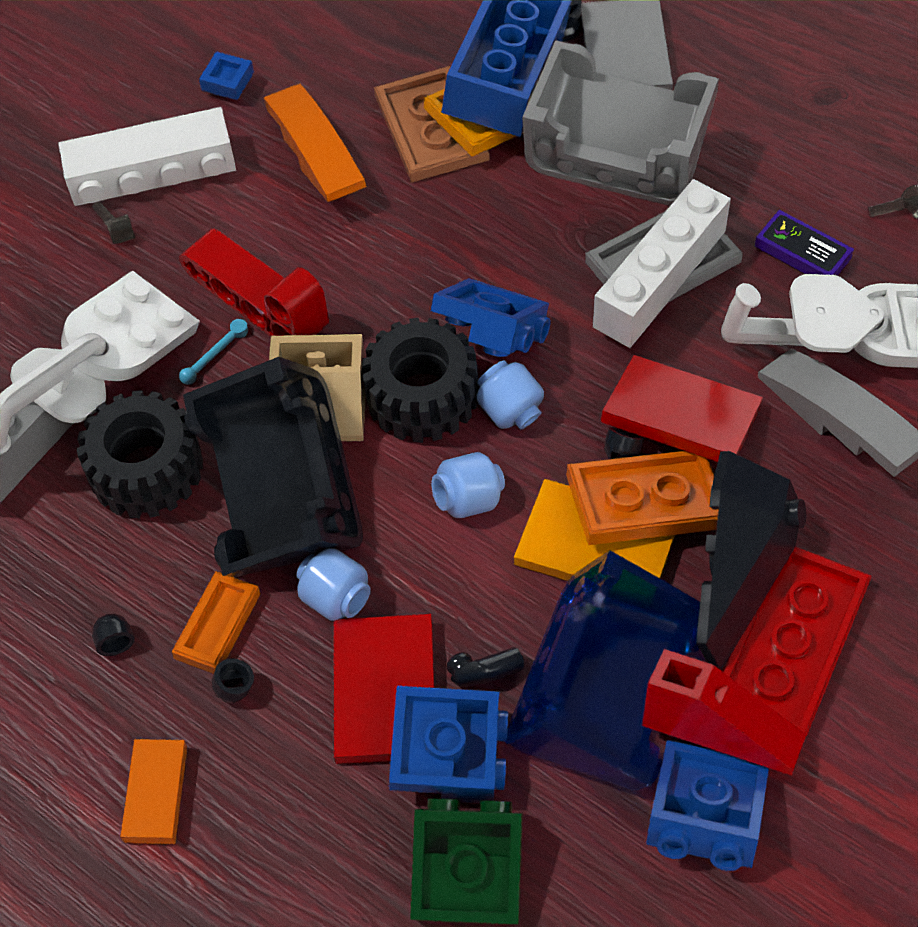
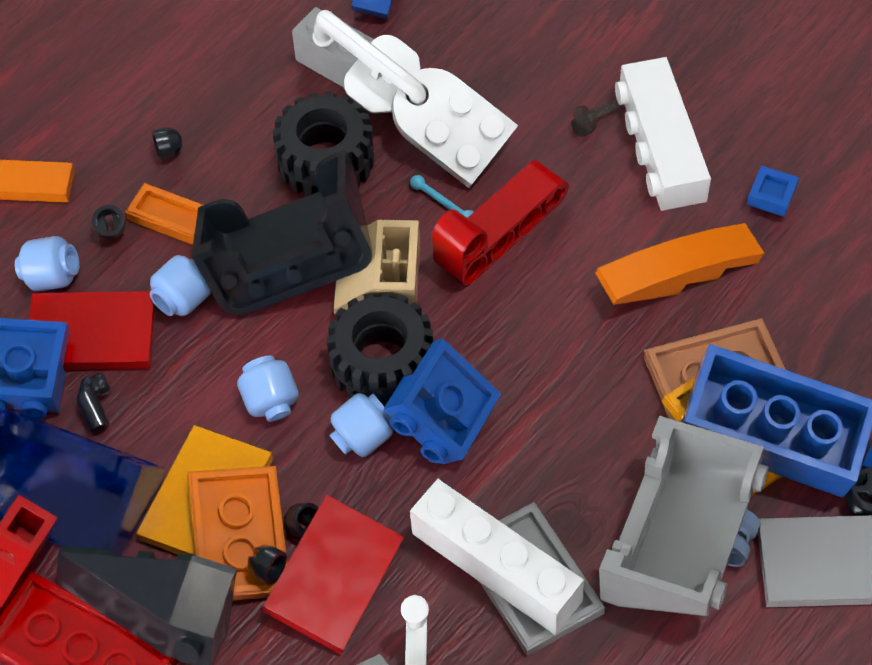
camera: 90 degrees right, 0 degrees up
(293, 741) = (47, 263): none -> light blue head
(688, 453) = (267, 564): none -> black hinge

